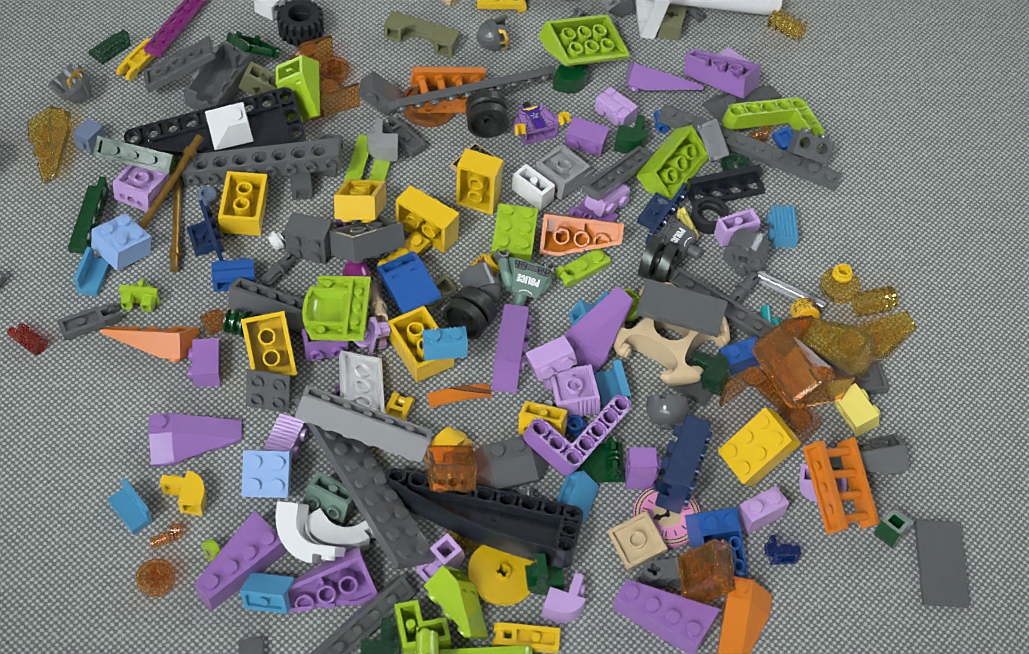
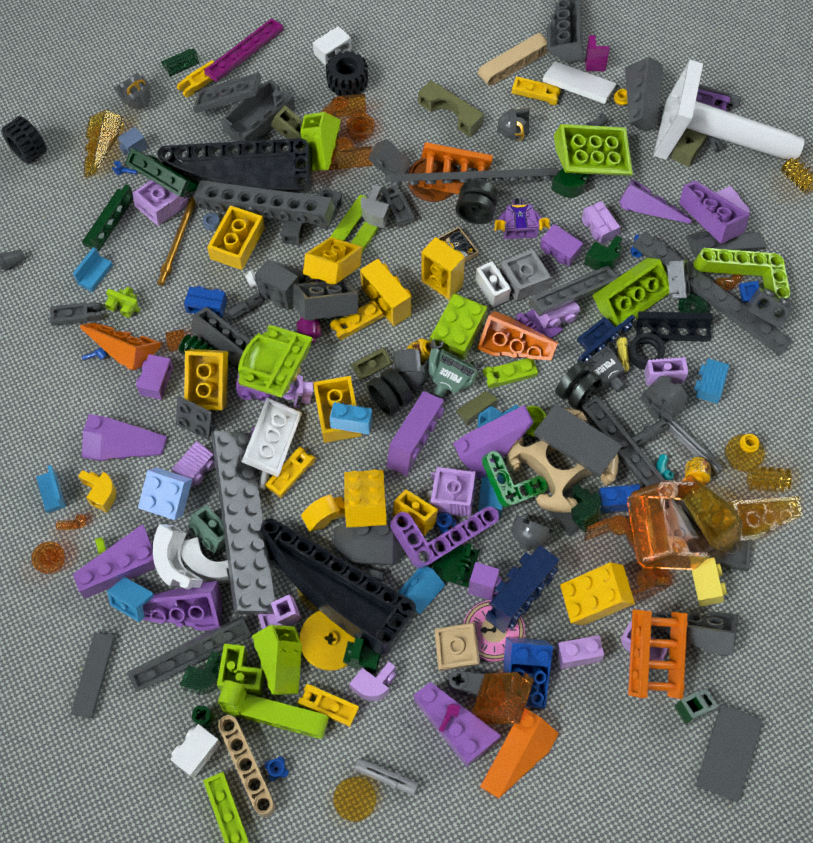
camera: 25 degrees right, 10 degrees up
(28, 339) = (23, 317): clear red hinge -> none
(81, 166) = (120, 169): none -> blue hand
(121, 241) = (123, 248): light blue brick -> none
(133, 353) = (101, 353): none -> blue hand
(188, 153) = (204, 181): pearl gold bar -> none
(205, 235) = (194, 258): dark blue bracket -> none
(229, 126) = (246, 163): white slope -> none
(252, 44) = (295, 88): dark green container -> none
(363, 424) = (255, 473): light grey brick -> none
(378, 306) = (313, 366): tan pin -> none
(408, 282) = (346, 349): blue slope -> none
(451, 468) = (315, 535): clear orange piece -> none
(458, 394) = (355, 463): orange sticker -> none
(487, 420) = (364, 498): none -> yellow brick
(551, 358) = (440, 457): lavender brick -> none
(558, 312) = (471, 410): none -> olive slope
(606, 348) = (508, 487): none -> green beam
(662, 597) = (452, 710): none -> magenta hand
(781, 554) = (584, 699): clear blue bracket -> none

